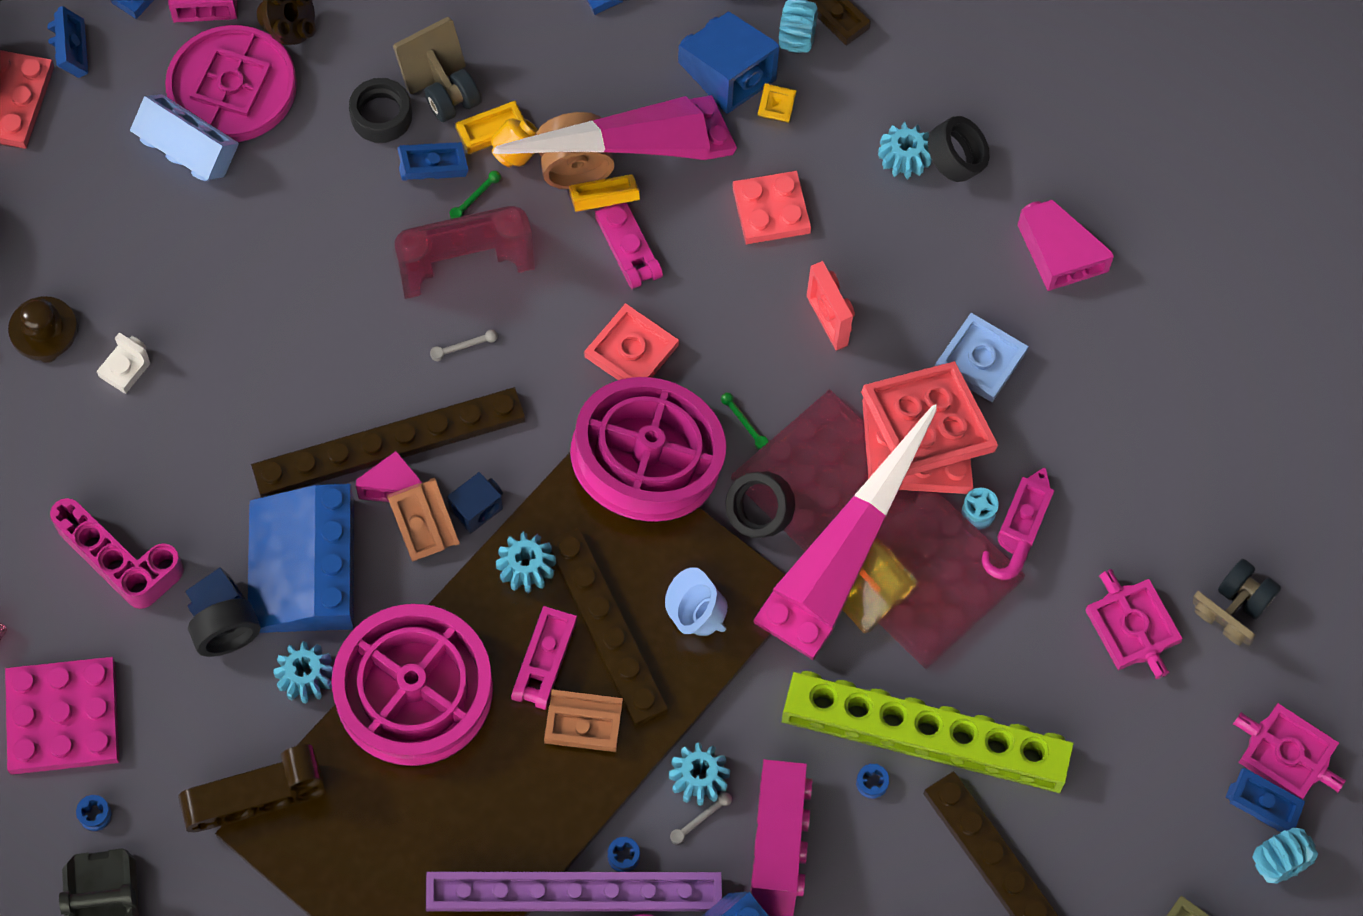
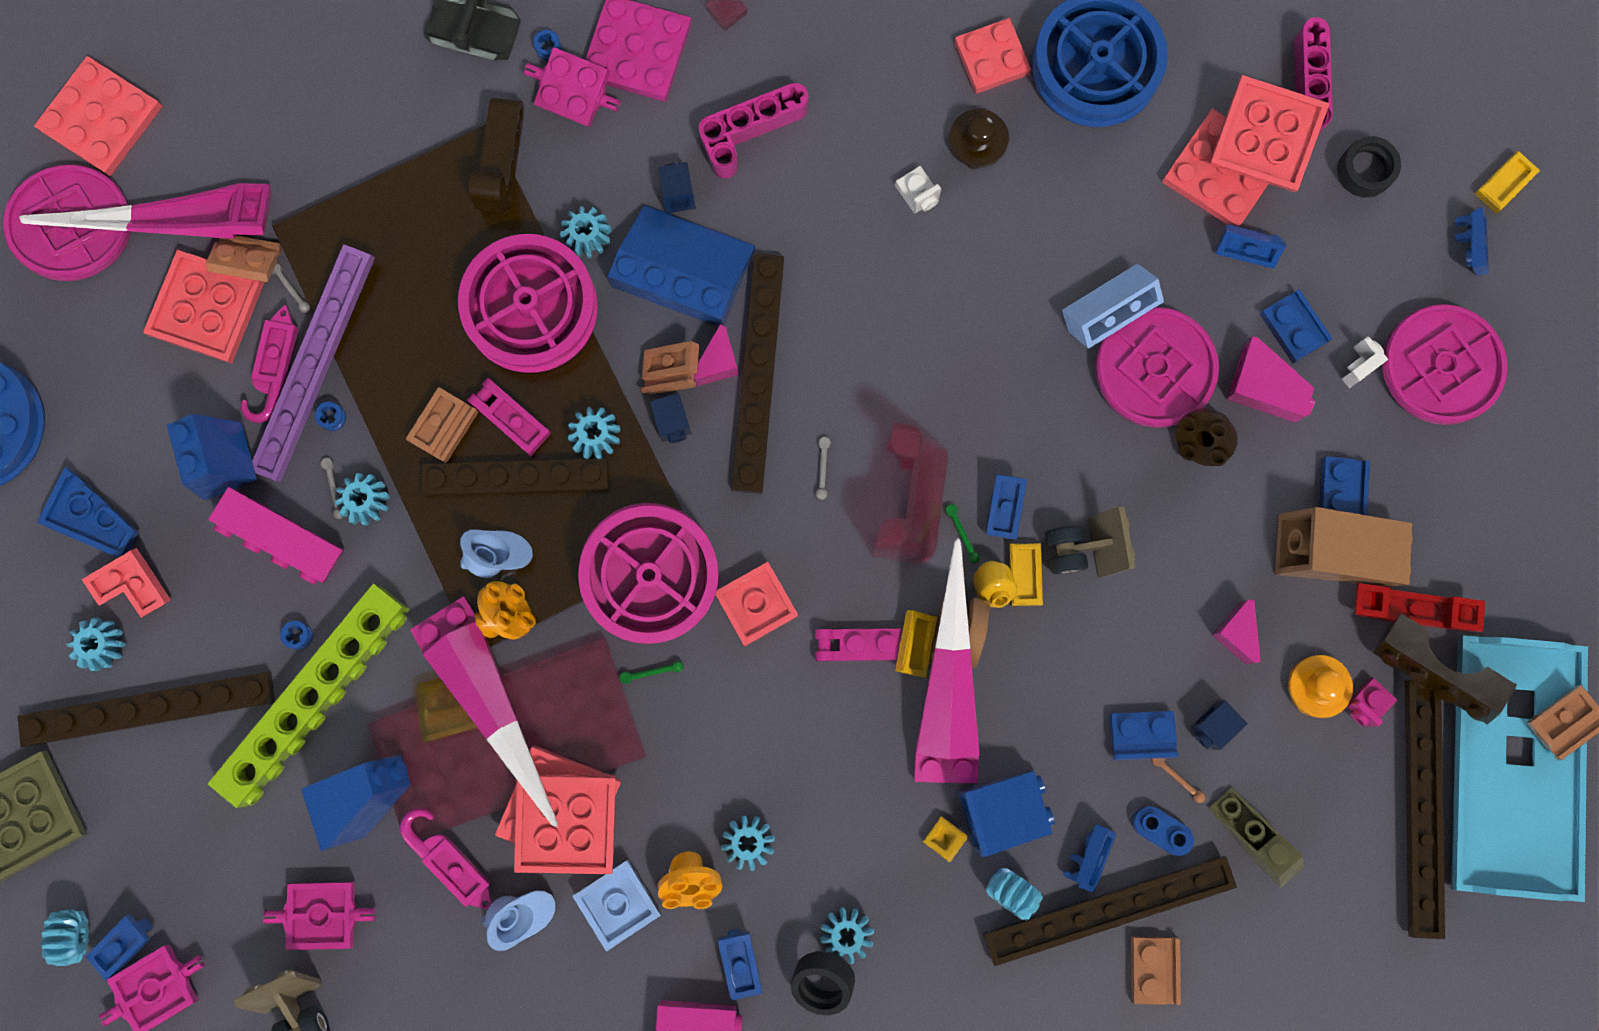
camera: 115 degrees right, 15 degrees up
(138, 758) = (572, 87): none -> dark pink plate
(224, 627) = (643, 180): black tyre -> none
(375, 89) = (1086, 461): black tyre -> none
(735, 505) = (566, 663): black tyre -> none
(753, 567) = (503, 611): none -> light orange plate
(771, 207) = (844, 787): coral plate -> none
(830, 307) = (700, 791): coral plate -> none
(877, 261) = (748, 831): none -> medium azure gear
(926, 298) = (689, 883): none -> light orange plate
(978, 228) = (740, 964): none -> blue plate
(982, 500) = (475, 838): medium azure wheel -> none
(1002, 623) = (354, 800): none -> blue slope
(1040, 442) = (515, 919): none -> light blue piece

